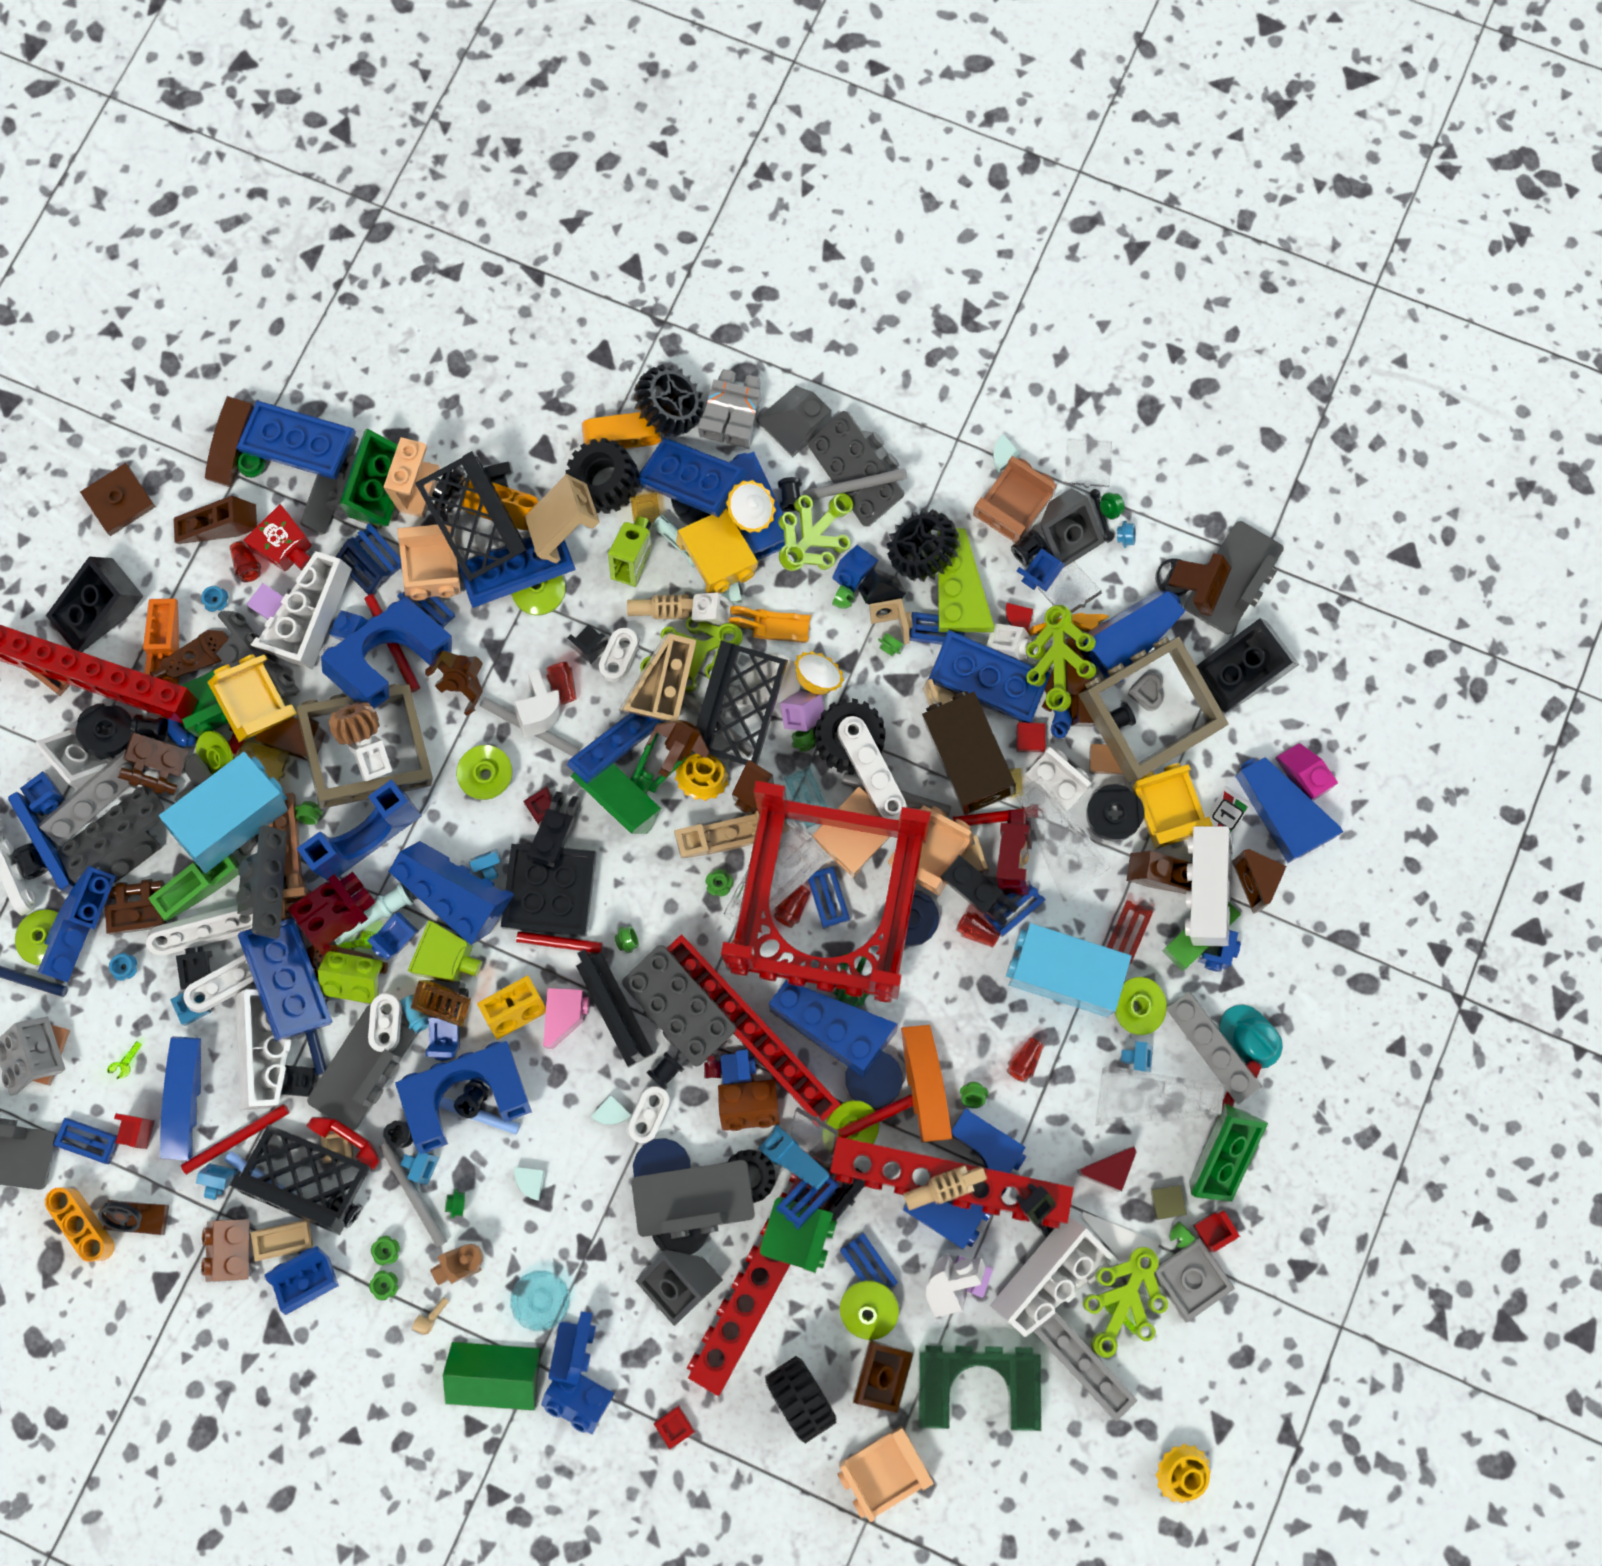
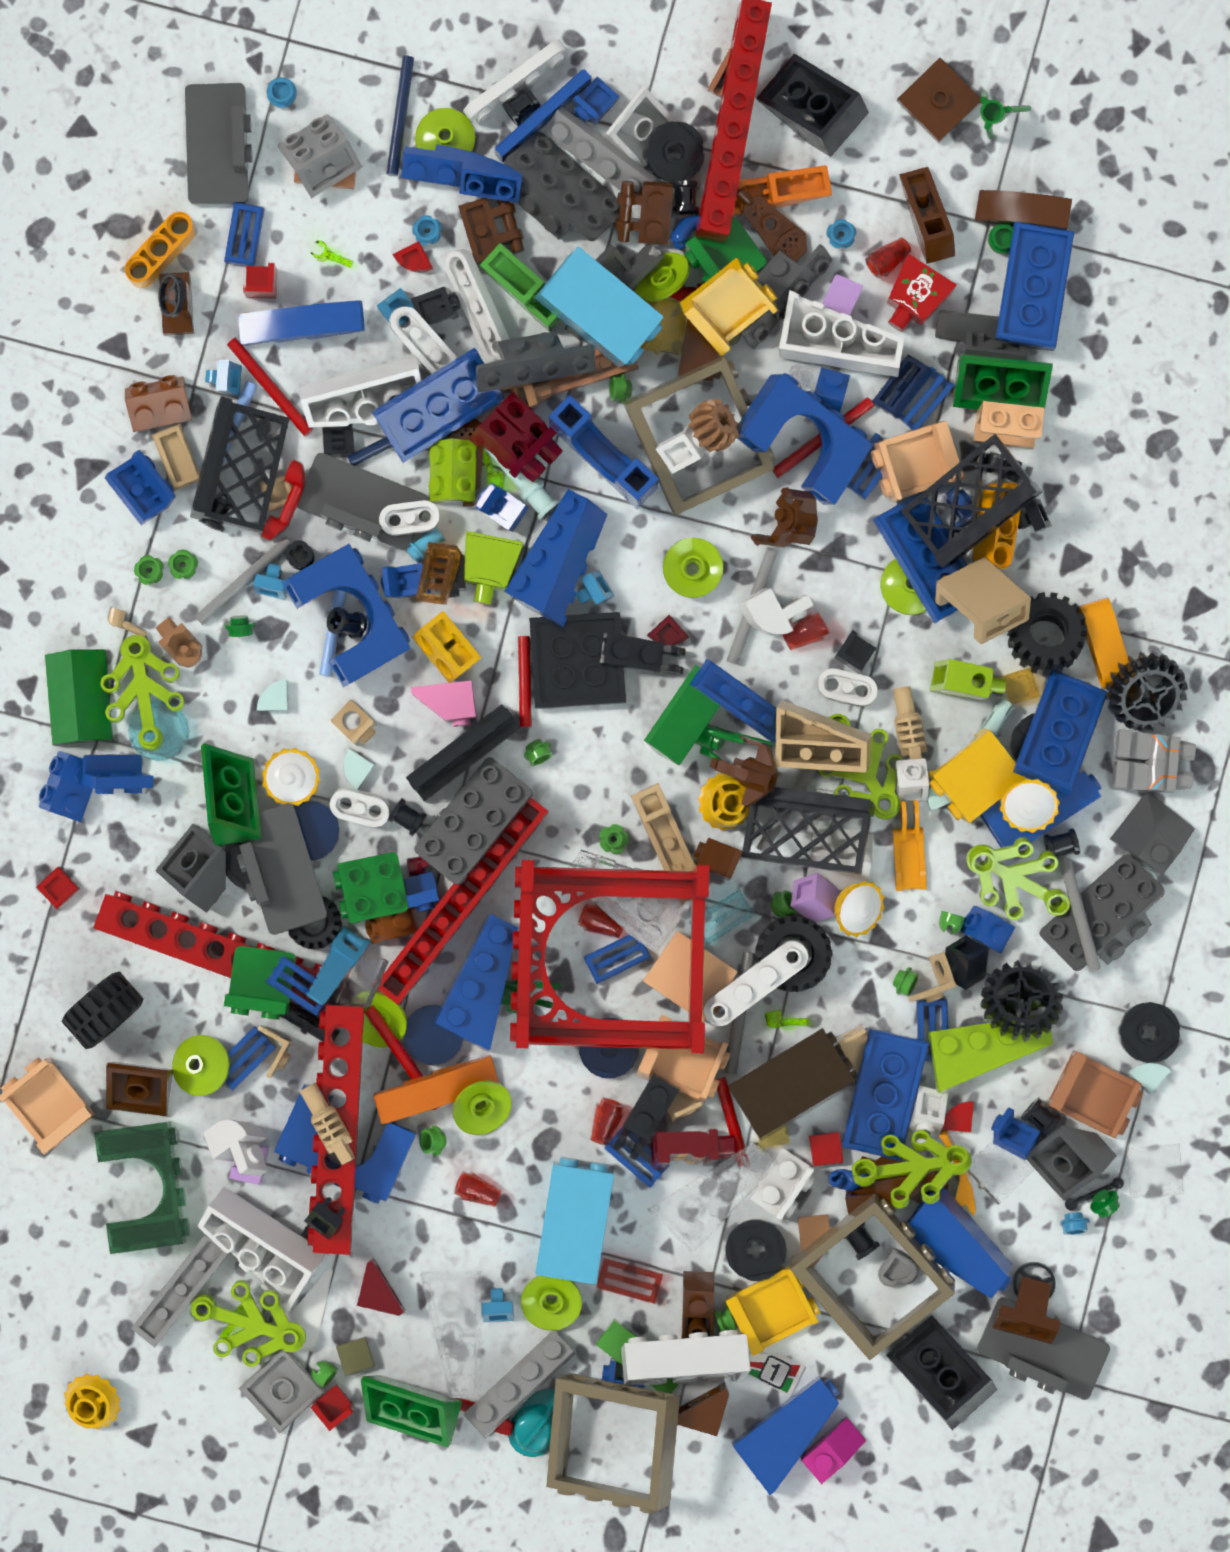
camera: 75 degrees right, 10 degrees up
(135, 447) = (995, 112): none -> green plant
(147, 984) = (413, 258): none -> red tile
(484, 527) = (964, 515): none -> blue bracket
(493, 1310) = (141, 687): none -> lime plant
(577, 1099) = (363, 732): none -> tan bracket
(607, 1176) = (291, 776): none -> white piece
(614, 1236) = (230, 796): none -> green slope
(725, 1115) = (371, 887): none -> green bracket
(873, 1226) = (283, 1056): none -> tan bracket
(907, 764) = (775, 1019): none -> clear neon green hand
(949, 1042) = (488, 1114): none -> lime dish
(966, 462) = (1131, 1032): none -> black plate
(1177, 848) = (725, 1319): none -> bright green bush
(1237, 948) = (664, 1443): none -> dark tan window

